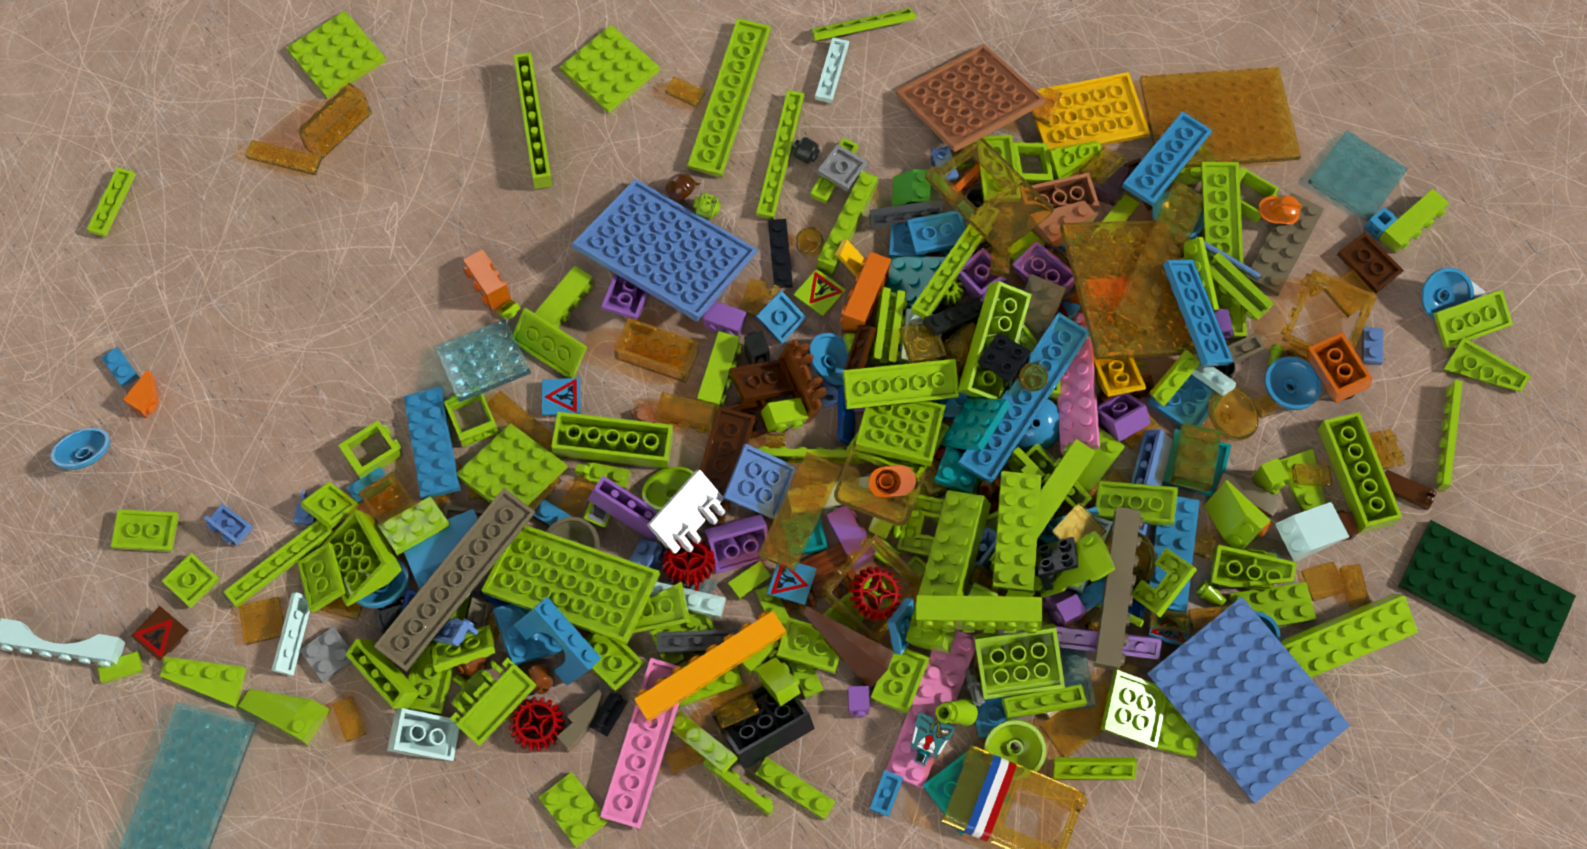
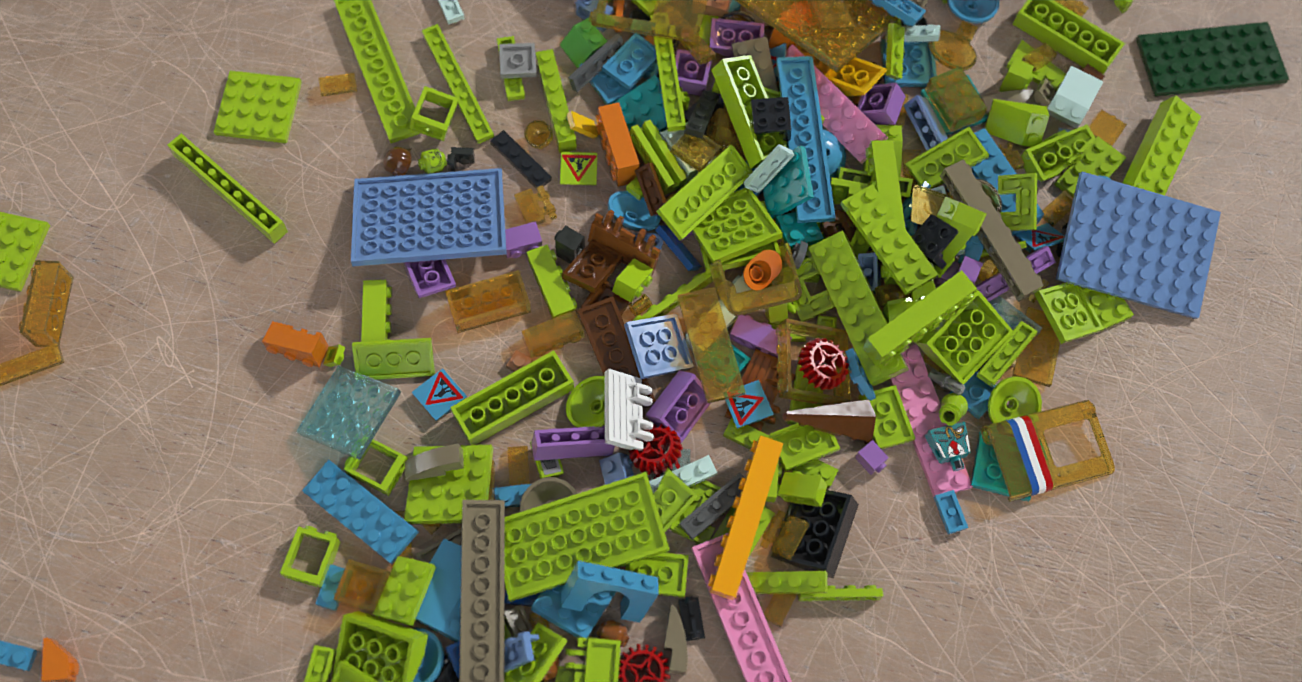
camera: 40 degrees left, 0 degrees up
(301, 516) = (295, 651): medium blue plate -> none
(329, 505) = (313, 629): lime plate -> none
(512, 445) = (434, 462): none -> dark tan slope
(514, 414) = (415, 437): clear yellow plate -> none
(593, 473) = (523, 432): lime hinge -> none
(725, 175) = (422, 124): none -> lime window
(734, 217) = (460, 155): none -> pearl dark grey bracket
(749, 580) = (711, 429): lime tile -> none
(780, 317) = (564, 207): dark azure plate -> none
(795, 788) = (881, 562): lime plate -> none
(806, 150) = (476, 66): pearl dark grey head -> none
(936, 489) = (799, 252): none -> dark grey plate
(968, 401) = (768, 168): none -> light aqua plate
(1033, 376) = (802, 116): clear yellow hair -> none
(1094, 767) = (1076, 377): lime plate -> none
(1170, 621) = (1043, 228): clear yellow slope -> none
(1210, 593) = (1046, 191): lime cone -> none
(1286, 508) = (1044, 93): none -> dark tan plate
(1354, 584) = (1128, 115): clear yellow plate -> none
(1410, 490) = (1112, 23): reddish brown hinge -> none

